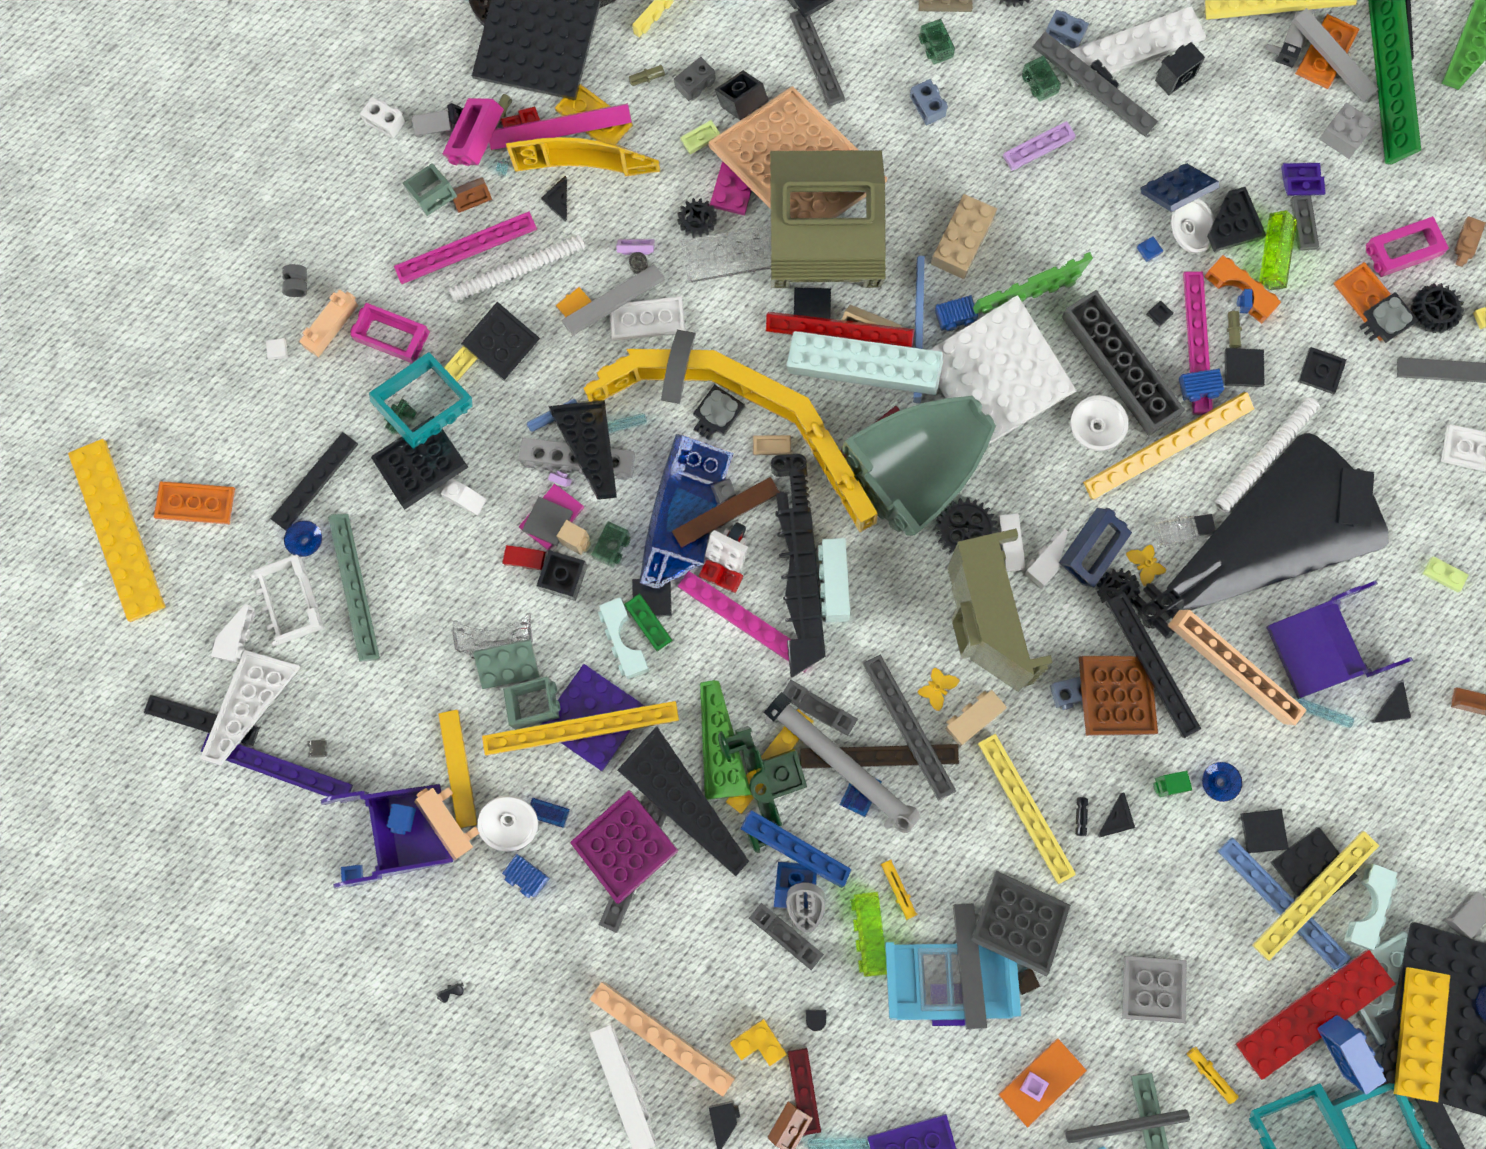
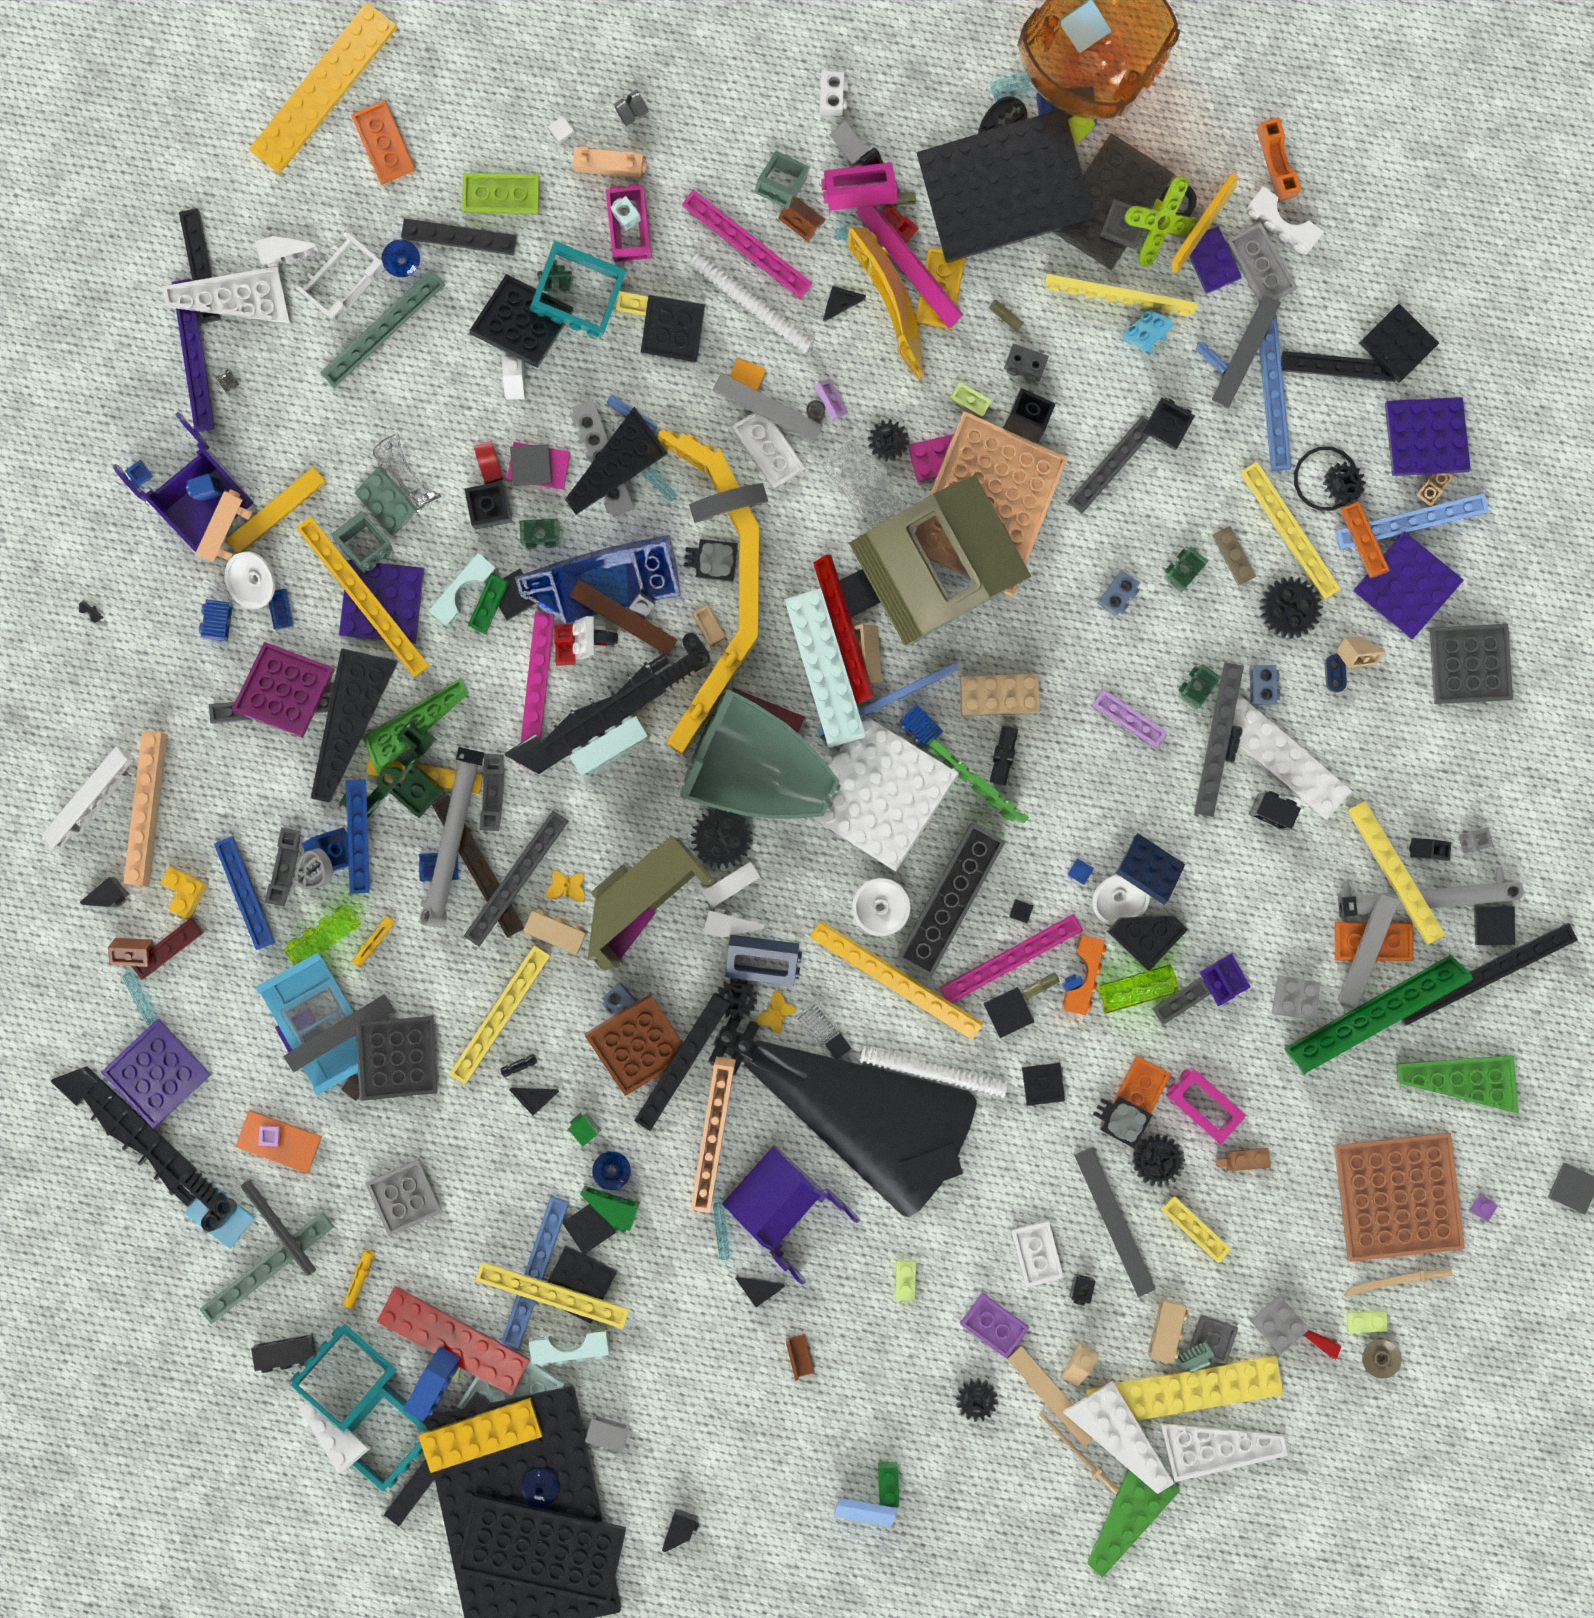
camera: 60 degrees right, 10 degrees up
(299, 426) = (500, 193): none -> lime plate
(386, 331) = (625, 221): none -> light aqua brick
(560, 478) = (575, 454): lavender plate -> none
(574, 538) = (526, 497): tan brick -> none
(791, 987) = (244, 893): none -> blue plate
(816, 1019) = (230, 927): black tile -> none
(1016, 258) = (1003, 755): none -> black piece
(1201, 384) = (966, 981): blue brick -> none
(1266, 790) = (613, 1208): none -> green slope

